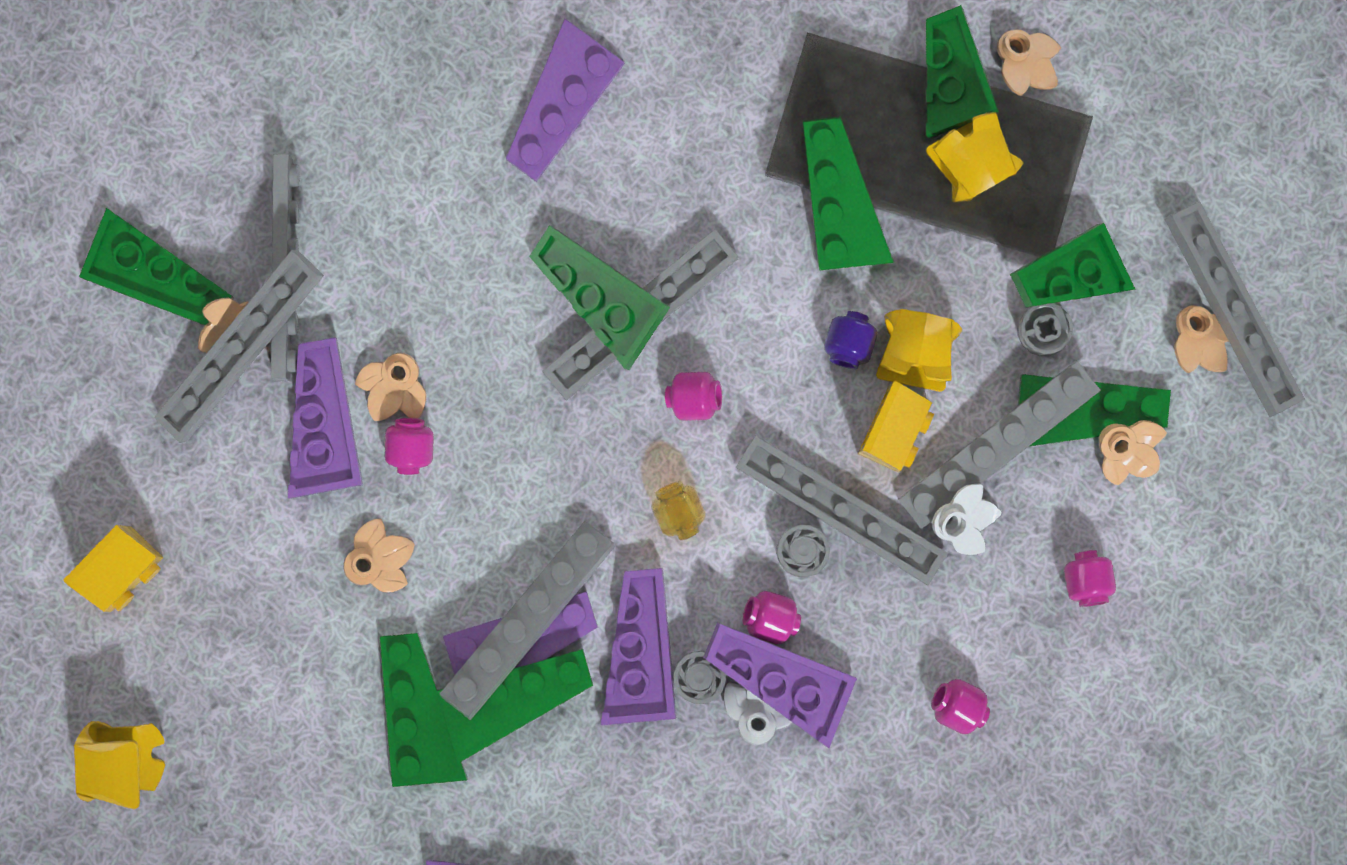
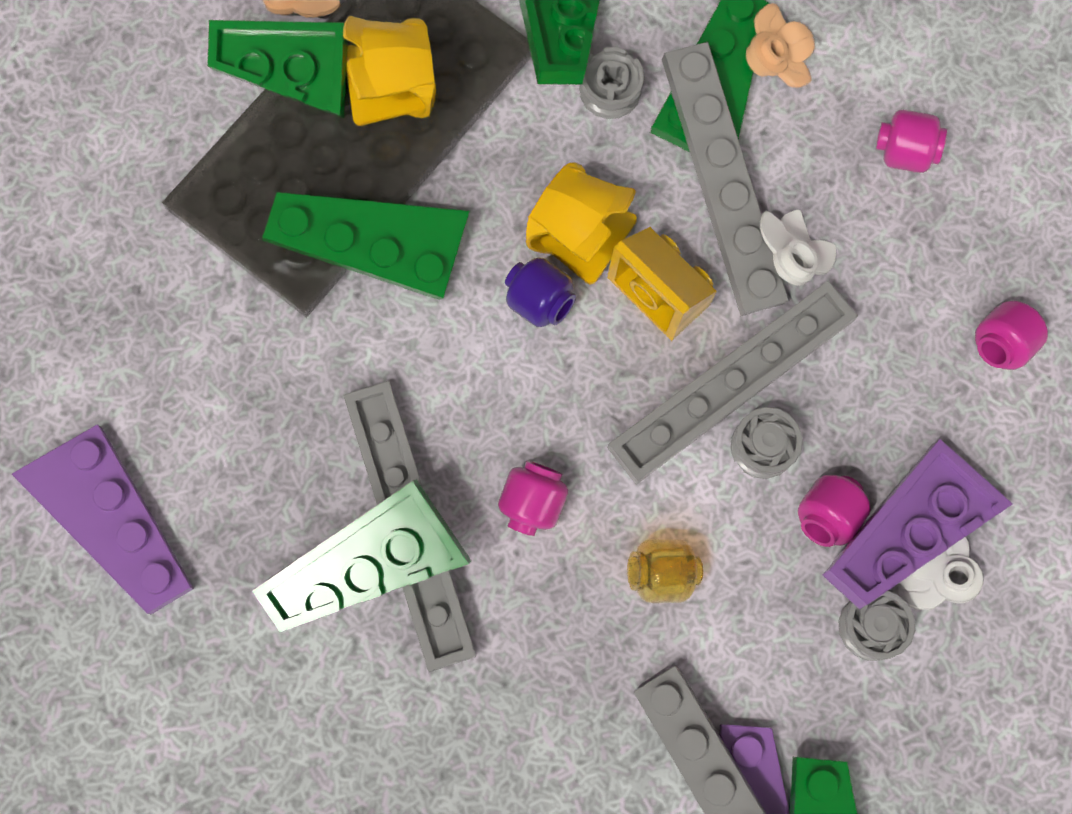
camera: 75 degrees left, 10 degrees down
(641, 663) = (834, 690): medium lavender wing -> none

